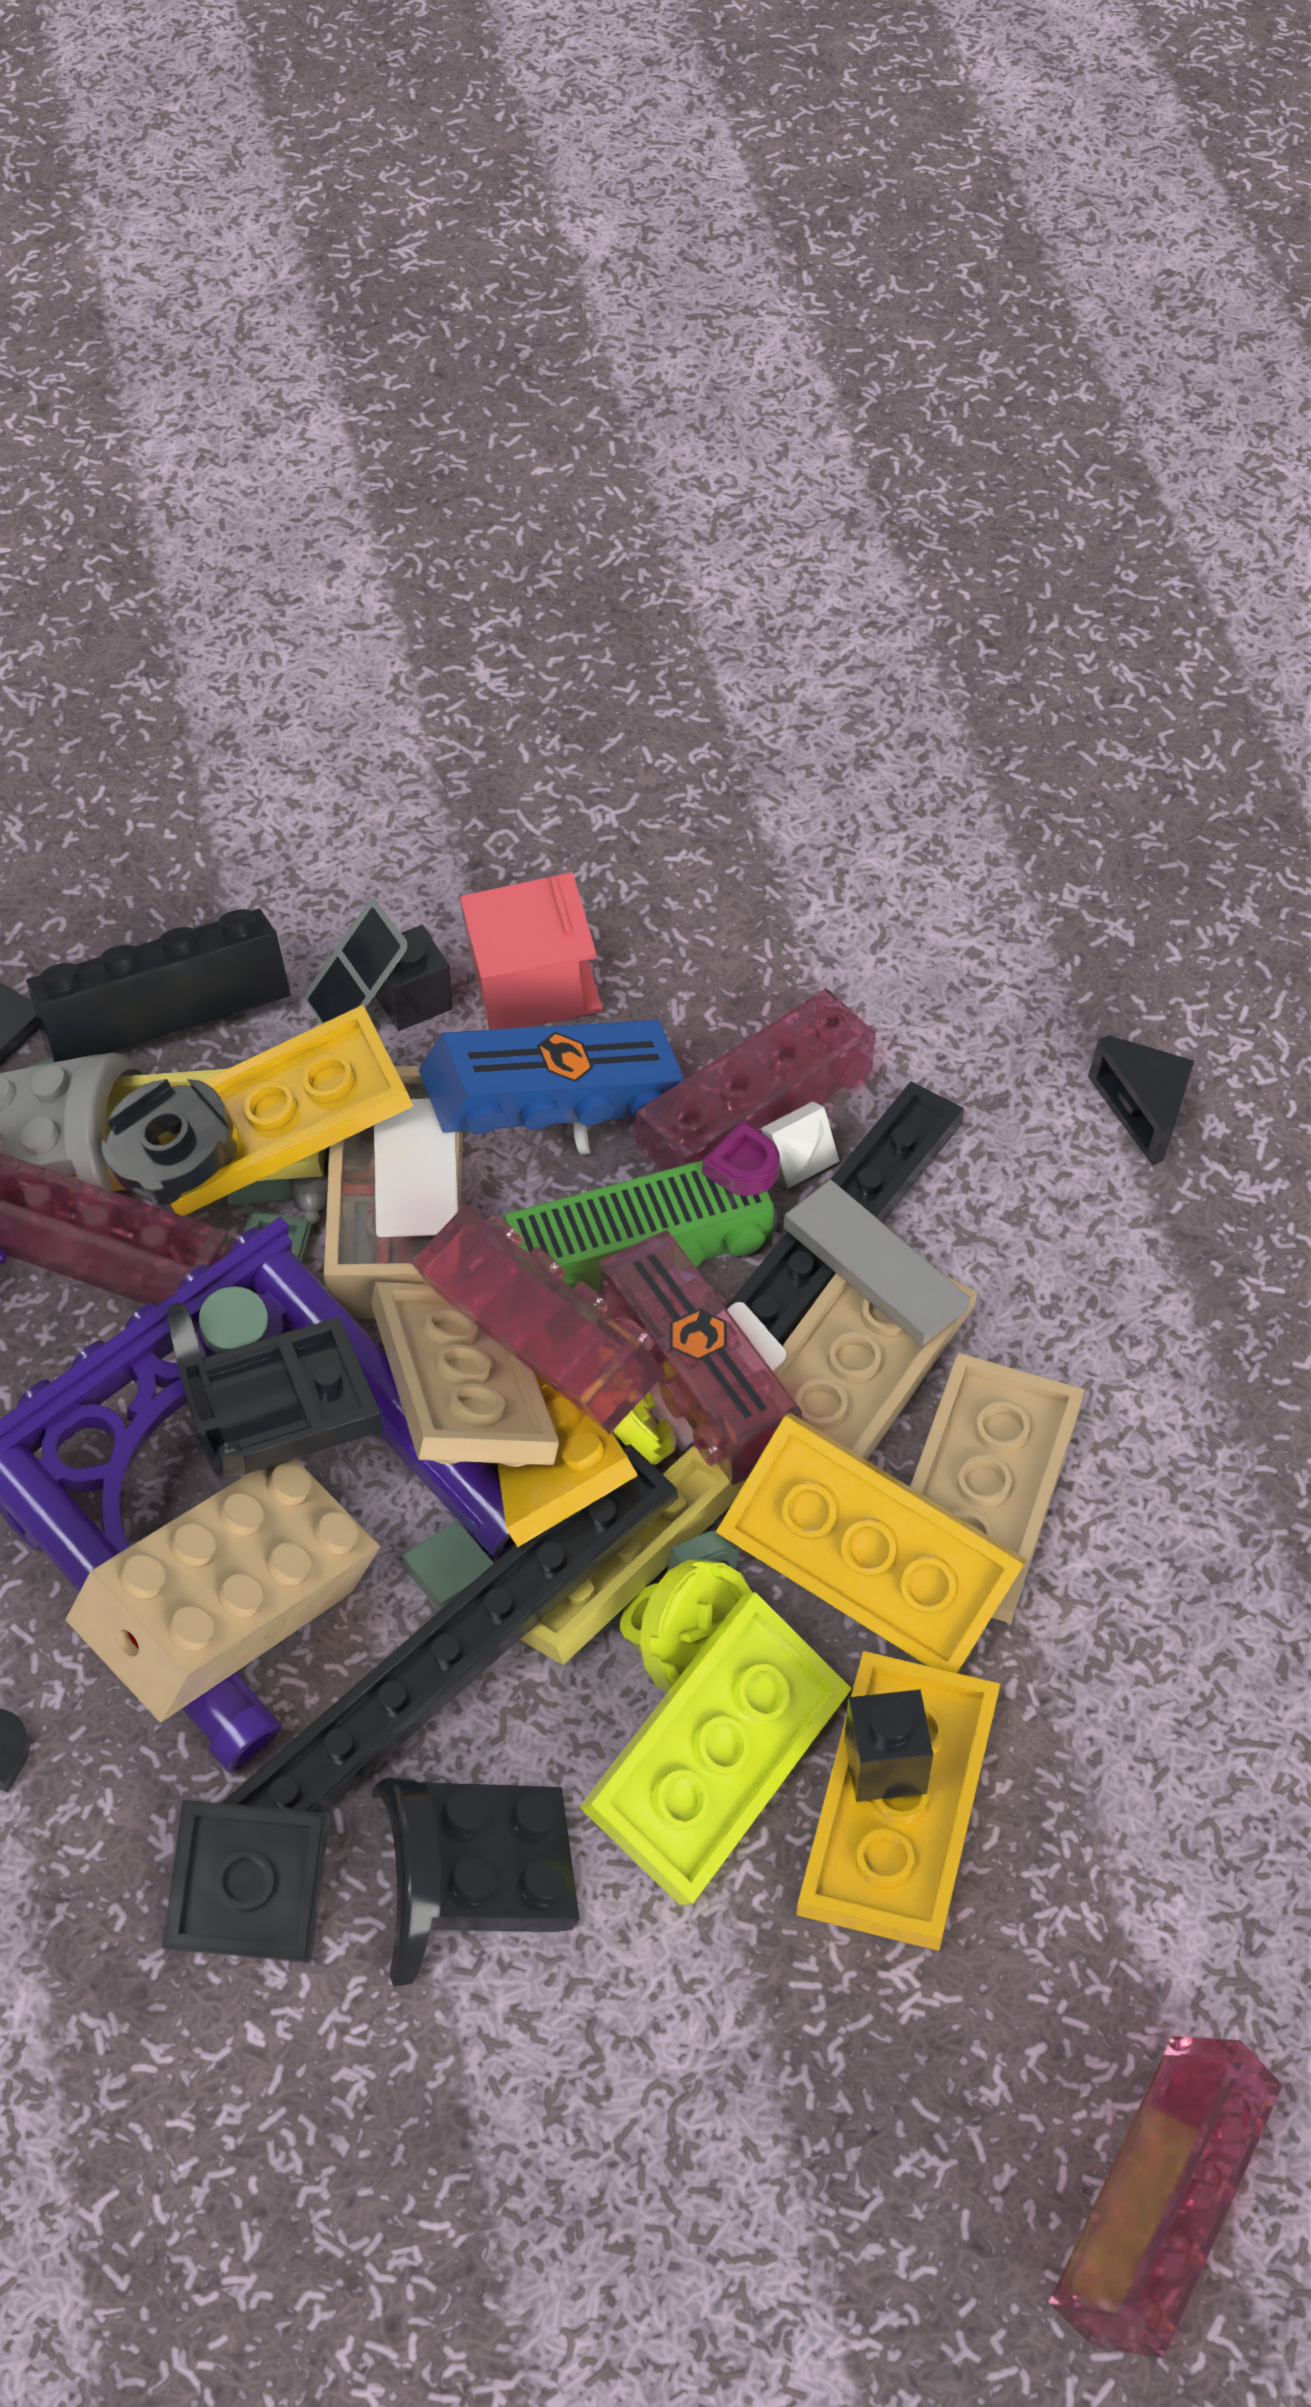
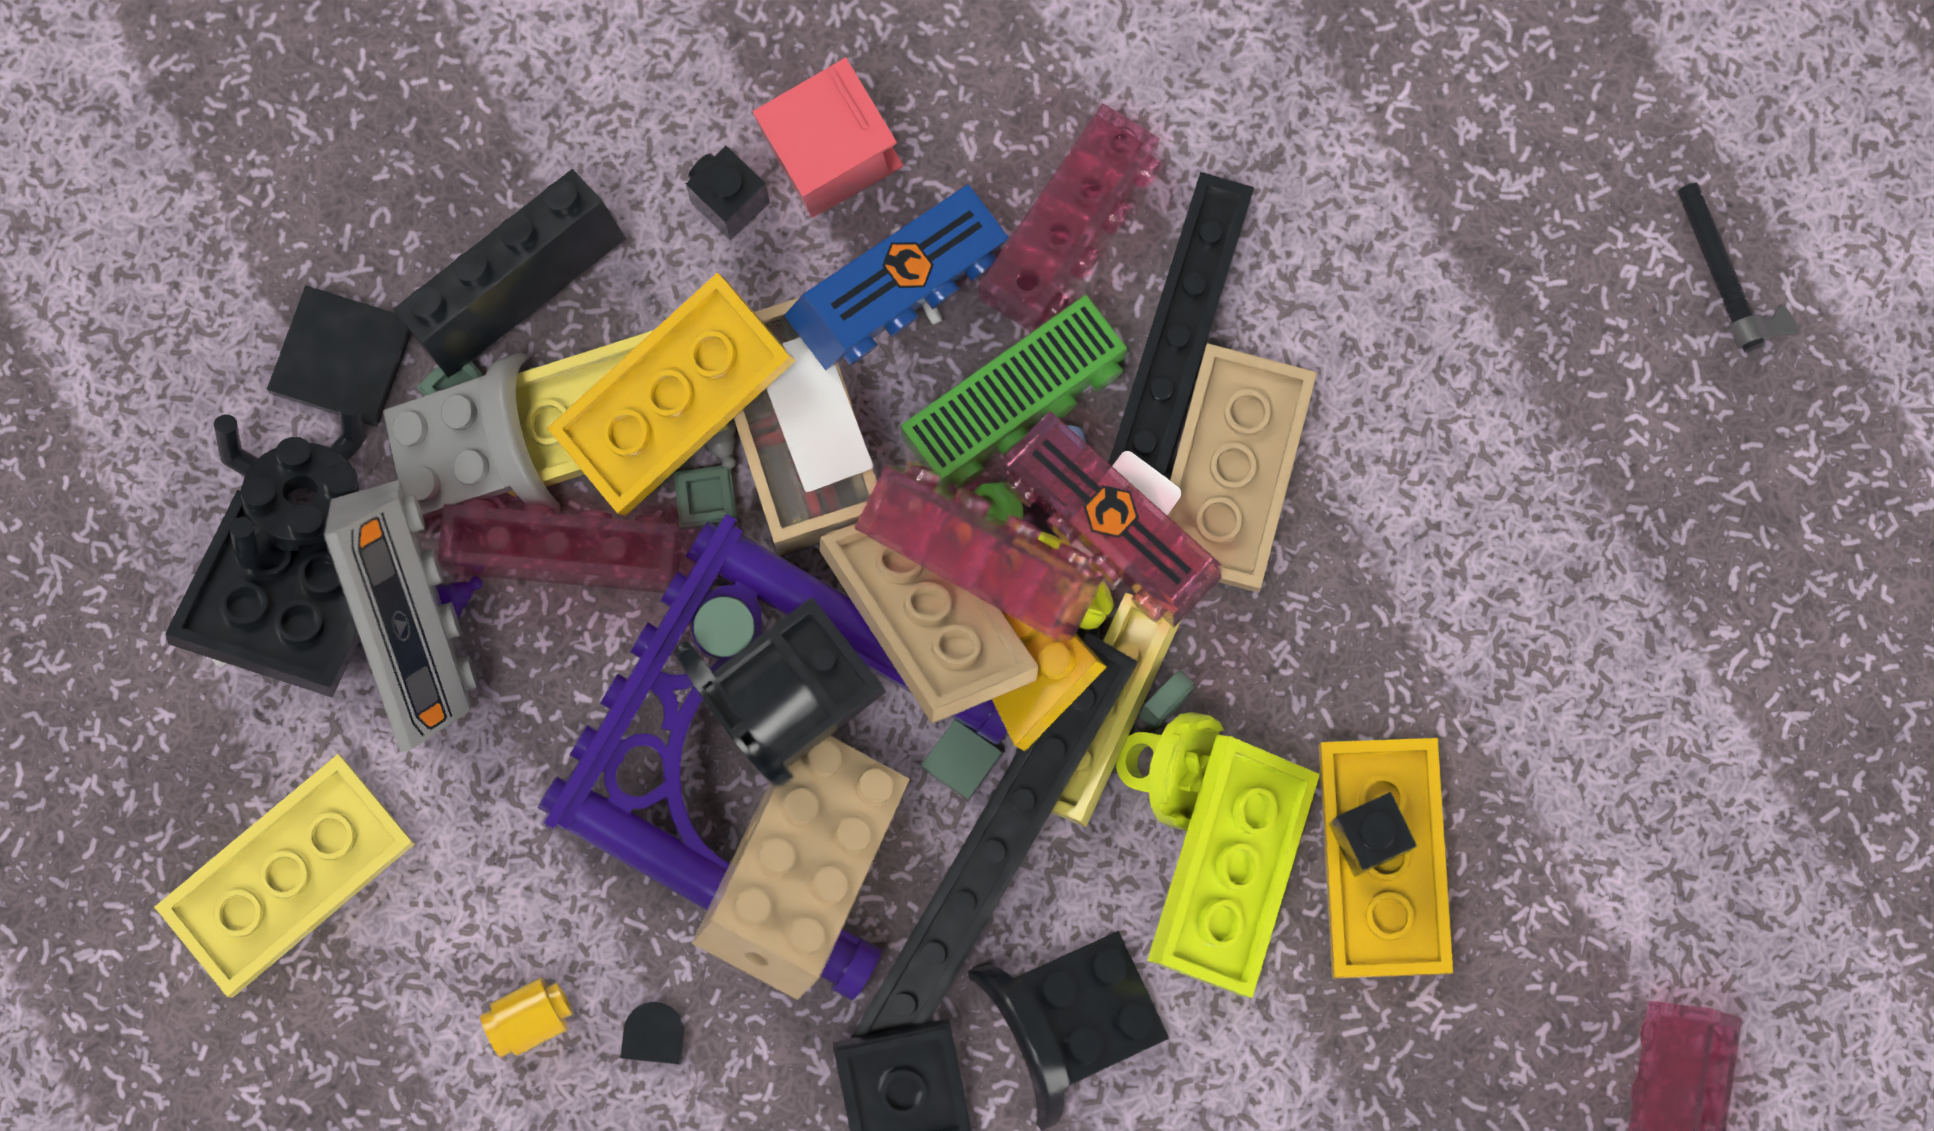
camera: 15 degrees left, 25 degrees up
(187, 1161) = (628, 455): black plate -> none
(357, 965) = (680, 207): black sticker -> none
(743, 1162) = (1090, 314): magenta tile -> none
(803, 1143) = (1124, 265): white tile -> none
(870, 1545) = (1305, 656): yellow plate -> none
(876, 1262) = (1227, 374): light grey tile -> none
(999, 1454) = (1372, 554): tan plate -> none
(1142, 1090) = (1404, 122): black slope -> none

